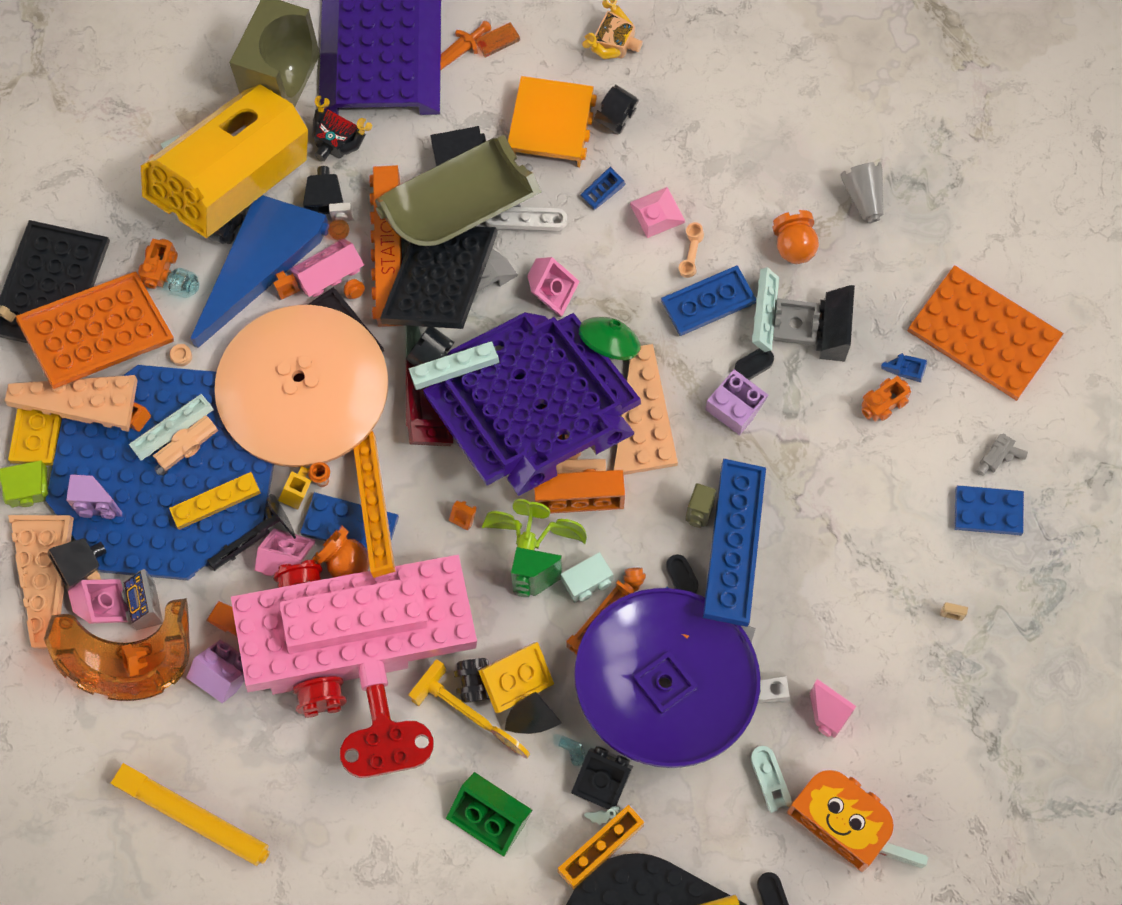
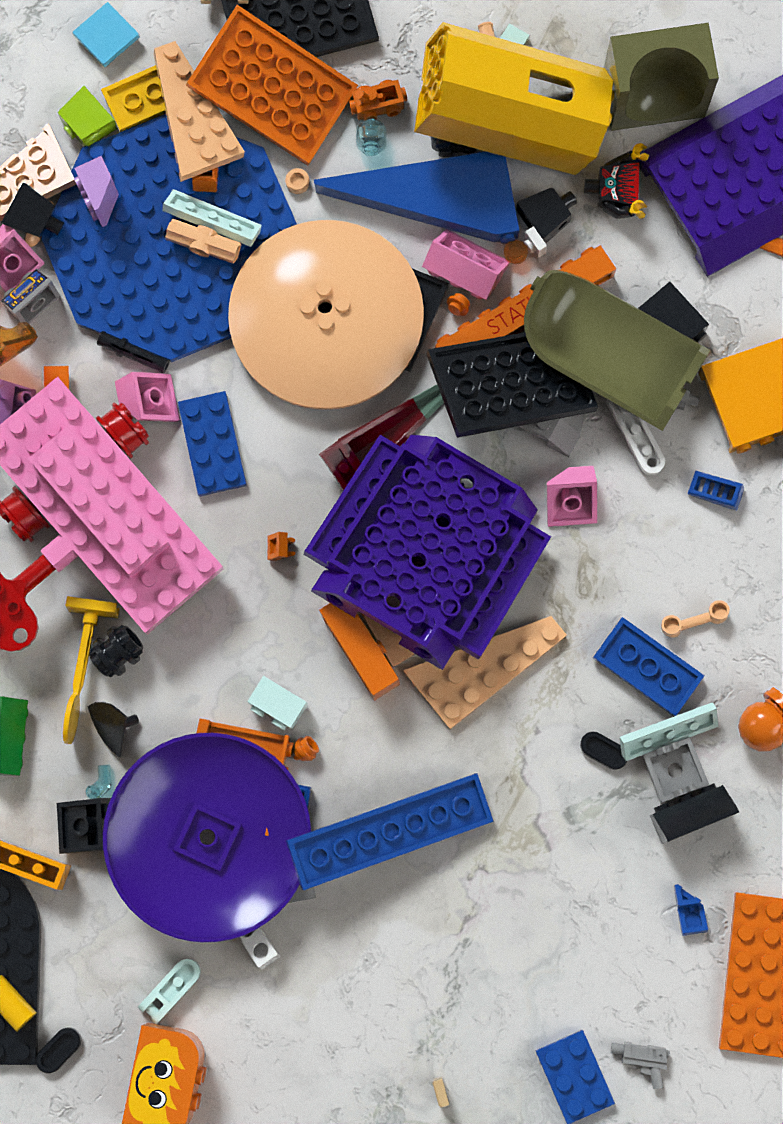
camera: 65 degrees right, 10 degrees up
(214, 500) = (163, 303): yellow plate -> none
(274, 514) = (179, 370): black shield -> none
(286, 285) = (424, 235): orange tile -> none
(295, 488) = (217, 371): yellow brick -> none
(319, 473) = (239, 381): orange cone -> none
(343, 555) = (169, 459): orange tile -> none
(374, 507) = (229, 457): light orange plate -> none
(429, 347) = (426, 417): black brick -> none
(454, 365) = (418, 450): light aqua plate -> none
(516, 677) = (137, 689): yellow plate -> none
(534, 571) = (246, 646): green slope -> none
(562, 527) = (274, 624): lime plant -> none
(602, 816) = (49, 846): light aqua piece -> none
(610, 338) = (542, 588): green dish -> none
(657, 212) = (722, 560): bright pink slope -> none
(681, 573) = (333, 795): black tile -> none
(700, 505) = (410, 776): olive brick -> none
(736, 402) = (548, 754): lavender slope -> none
(829, 709) = (266, 1015): bright pink slope -> none
(879, 403) = (628, 903): orange brick -> none

